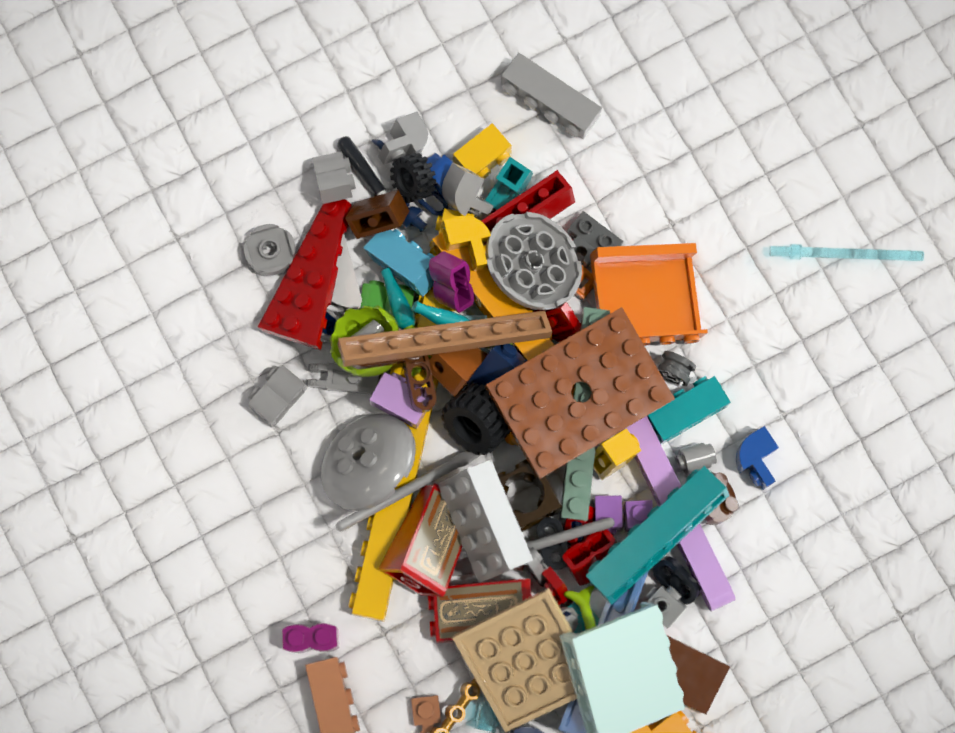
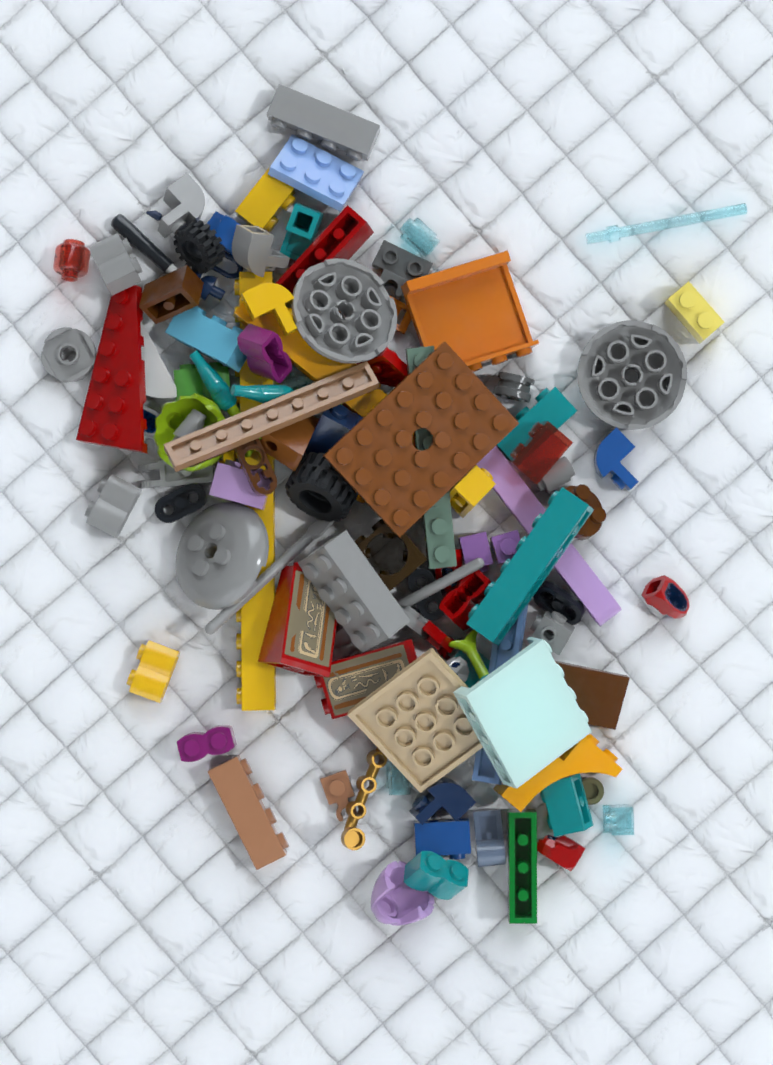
camera: 10 degrees left, 10 degrees up
(277, 558) = (154, 671): none -> yellow brick
(293, 166) = (71, 260): none -> clear red head
(340, 407) = (180, 501): none -> black plate
(534, 137) = (316, 172): none -> light blue plate
(616, 214) = (419, 236): none -> clear light blue brick
(688, 431) = (539, 451): none -> clear red brick
(780, 597) = (666, 597): none -> red rock
(808, 365) = (659, 370): none -> light grey brick
(857, 337) = (694, 312): none -> light yellow brick

